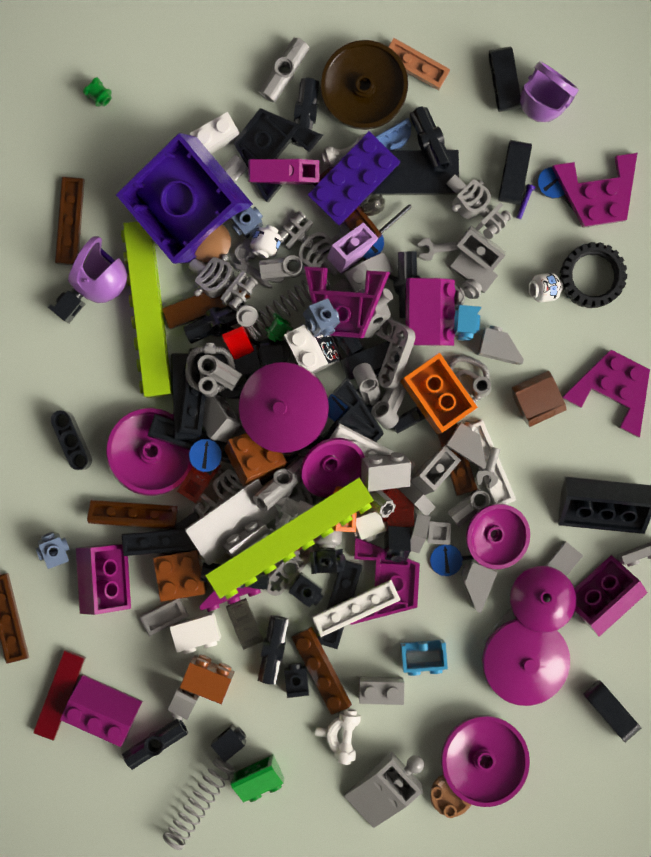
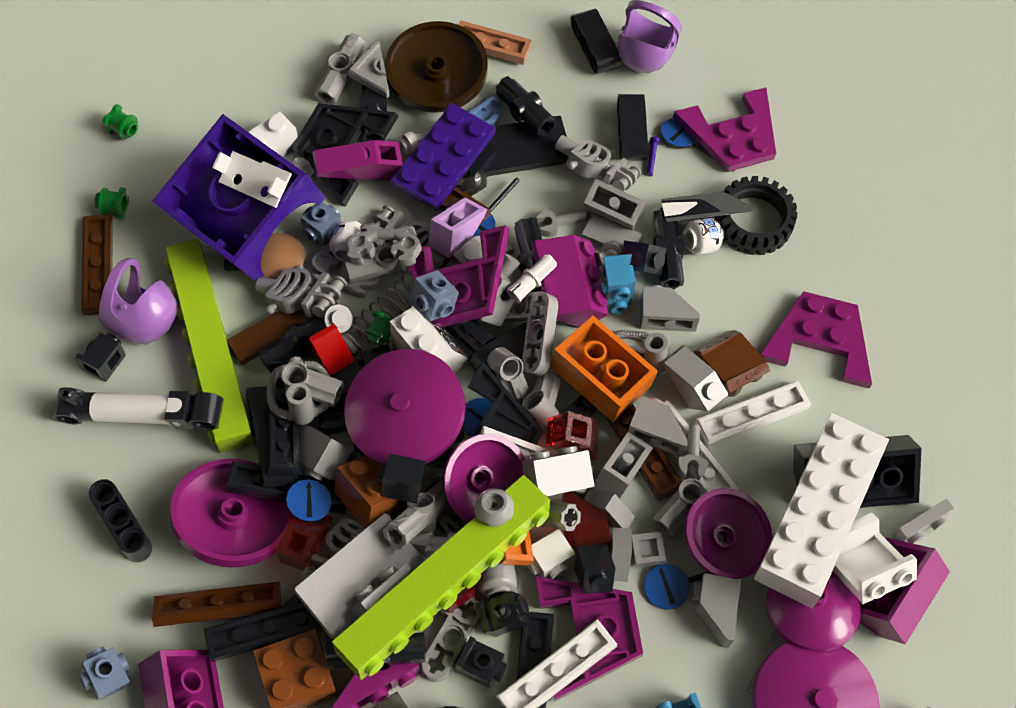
camera: 15 degrees left, 25 degrees down
(85, 168) = (112, 201): none -> green brick
(91, 359) = (177, 409): none -> piece
(197, 195) = (254, 177): none -> white piece
(272, 462) = (401, 478): none -> black brick
(308, 81) = (370, 70): none -> light grey tile
(309, 266) = (405, 250): none -> light grey helmet
(332, 508) = (494, 516): none -> light grey plate
(400, 312) = (531, 278): none -> white axle
(403, 441) = (573, 430): none -> clear red slope
(492, 301) = (645, 257): none -> black brick
(505, 413) = (694, 380): none -> light grey slope
(515, 292) = (667, 236): none -> black piece
(543, 442) = (752, 413): none -> white tile
(551, 263) = (703, 206): none -> sticker
(567, 541) = (821, 511): none -> white brick
(589, 577) = (871, 563): none -> white panel

